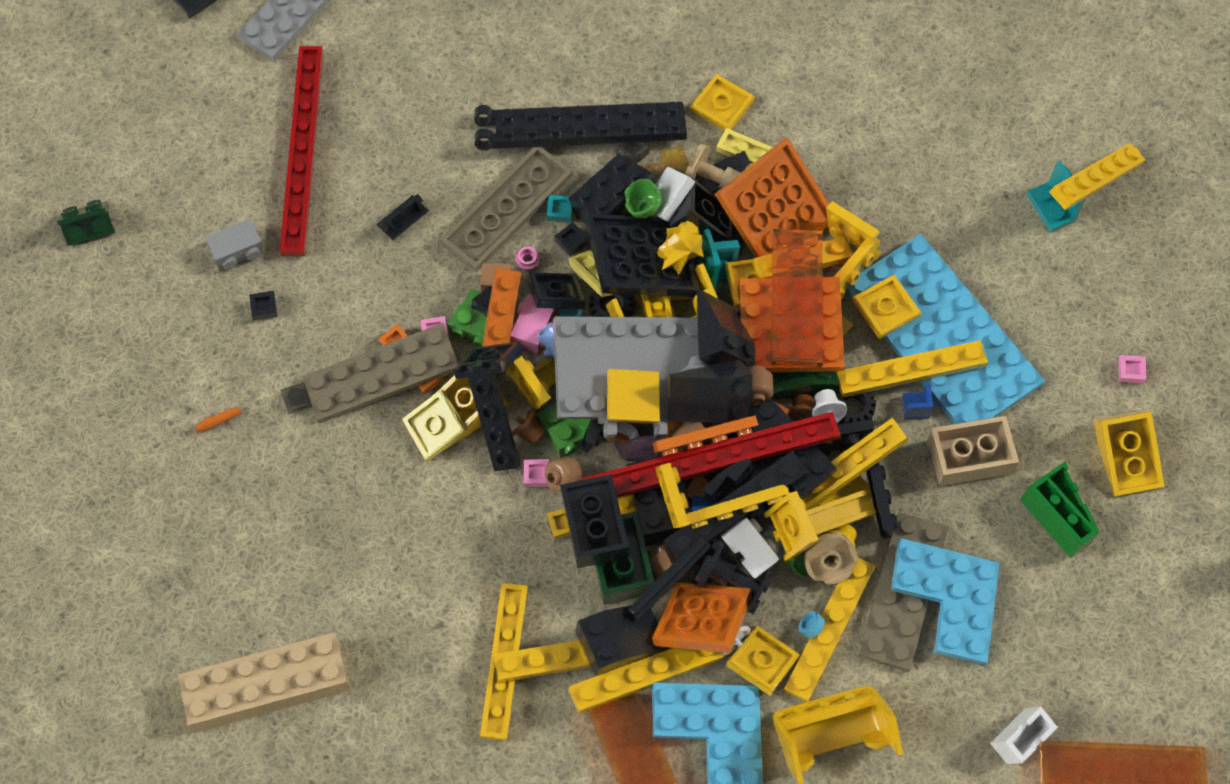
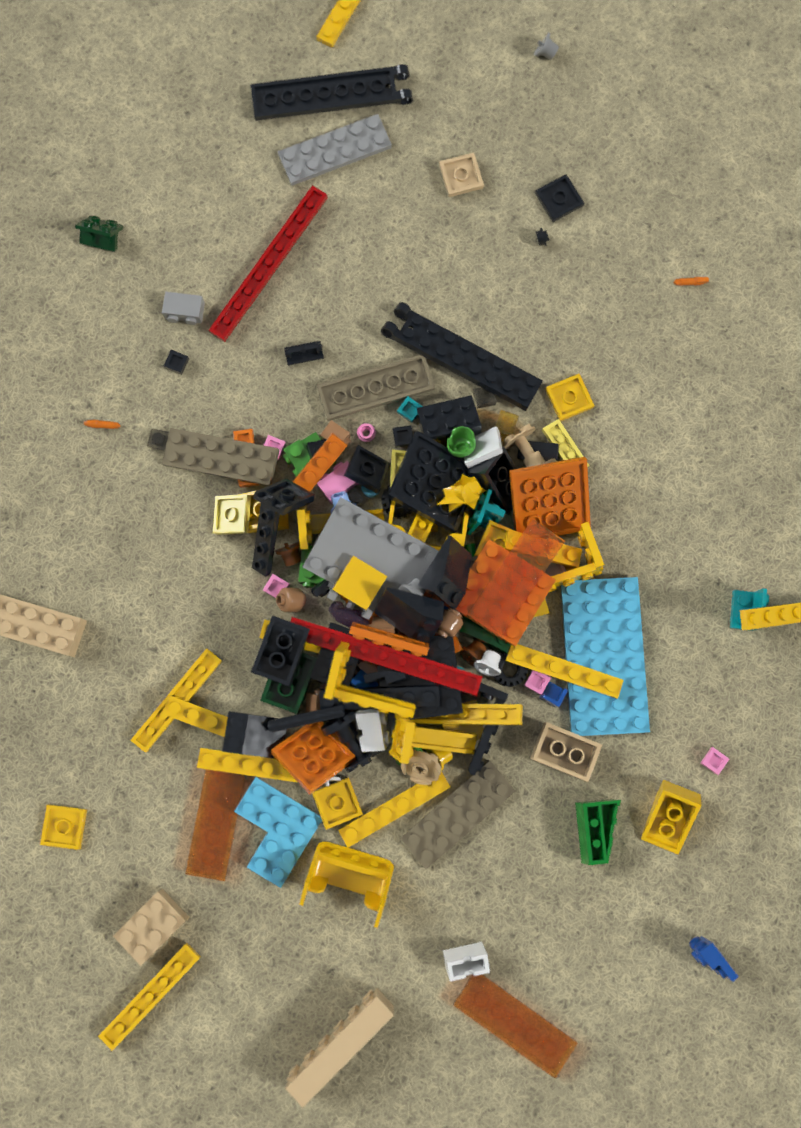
camera: 30 degrees right, 15 degrees up
(811, 624) = (382, 800): medium azure tile -> none
(886, 306) = (577, 616): yellow tile -> none
(891, 401) = (537, 682): none -> bright pink plate
(963, 588) = (494, 843): medium azure plate -> none

